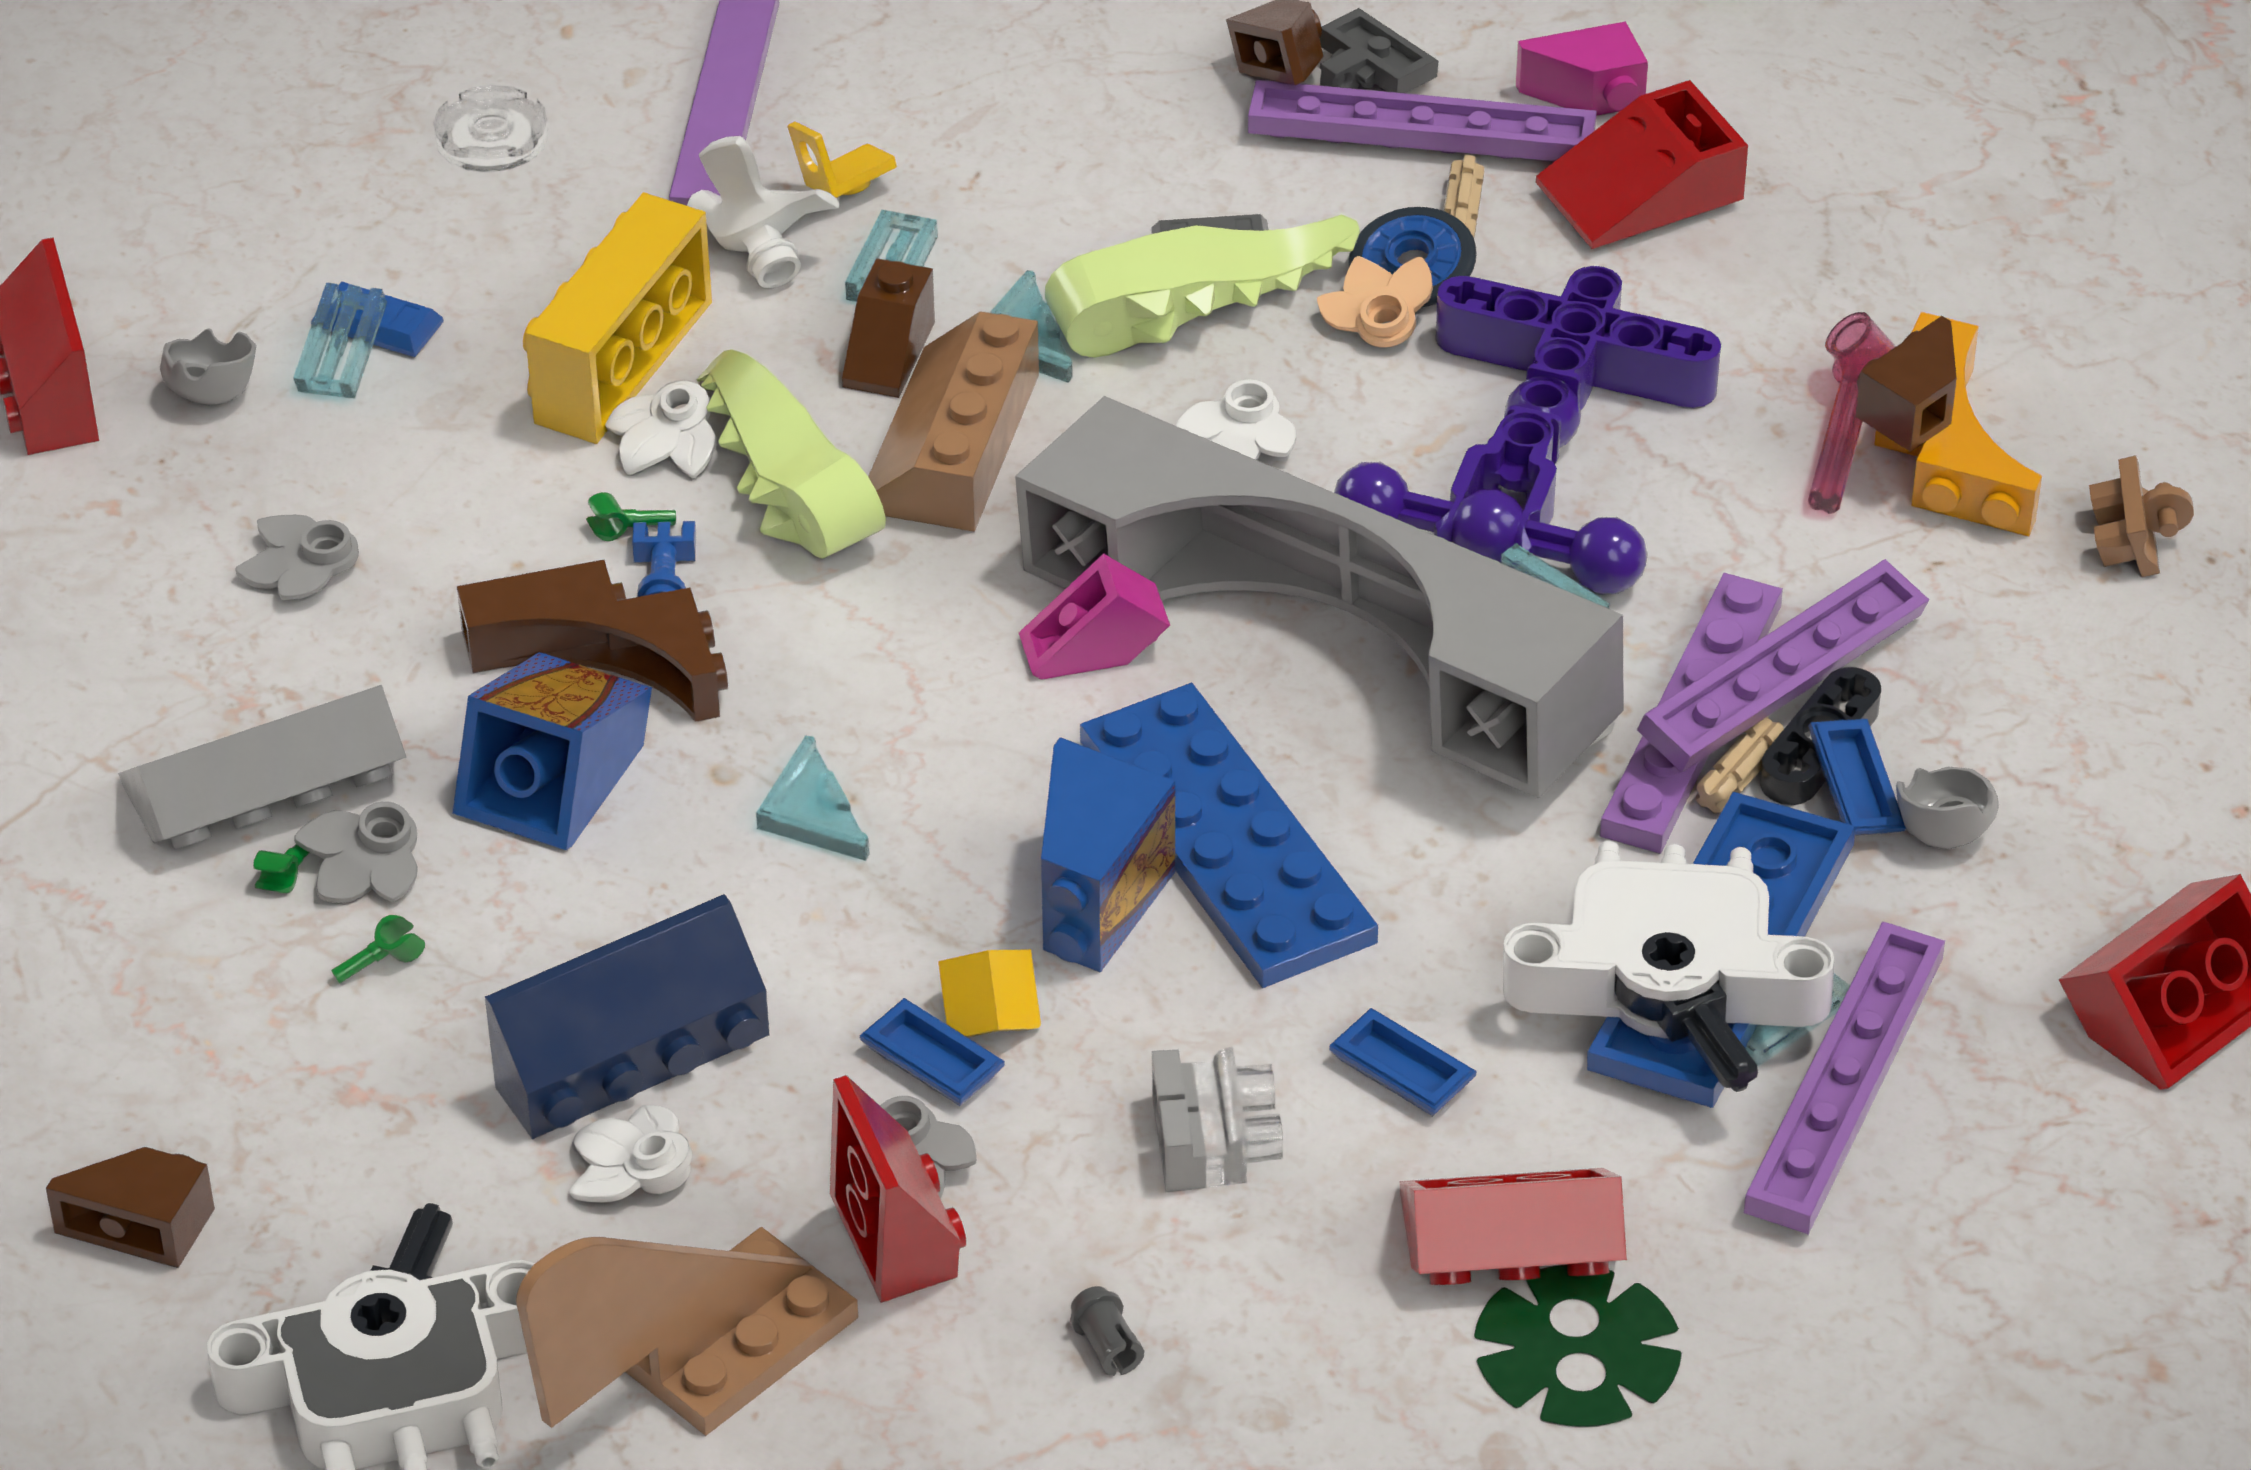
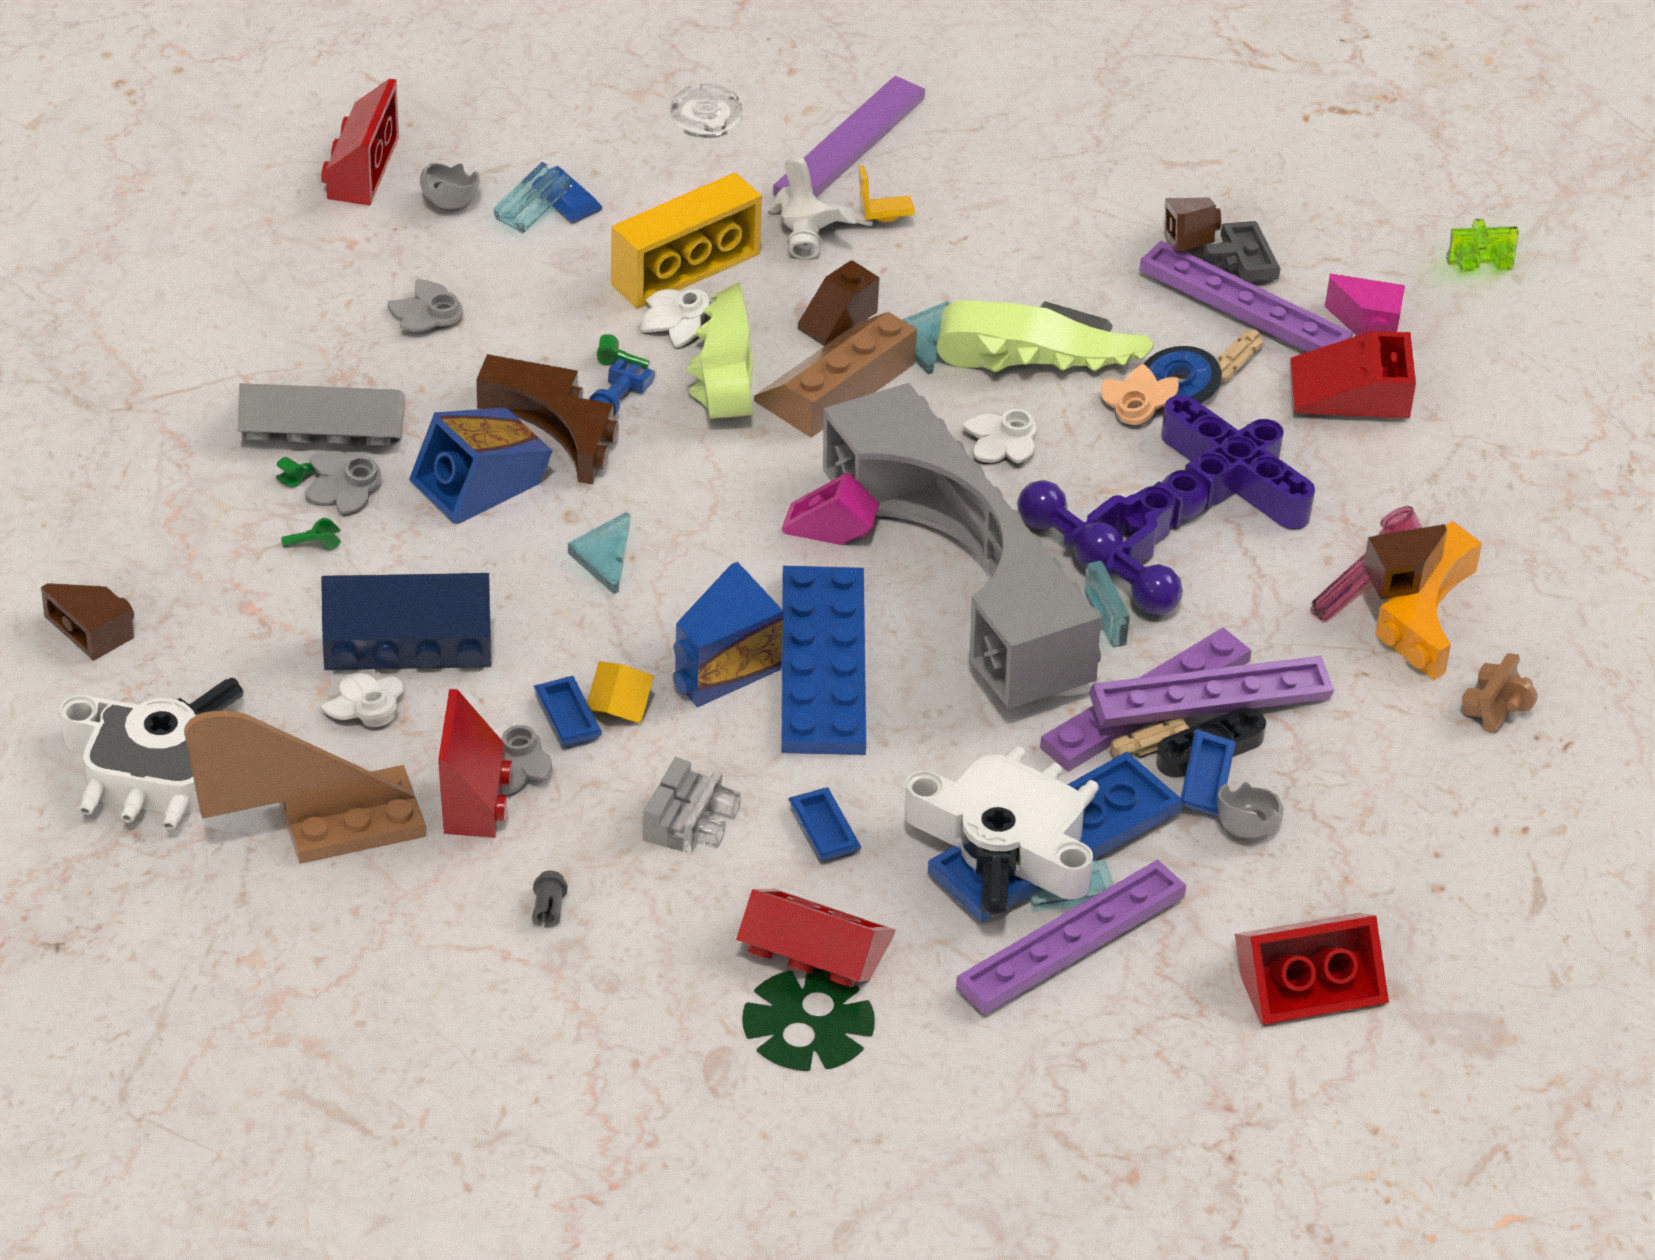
camera: 25 degrees right, 0 degrees up
(878, 238) = (892, 265): clear light blue tile -> none

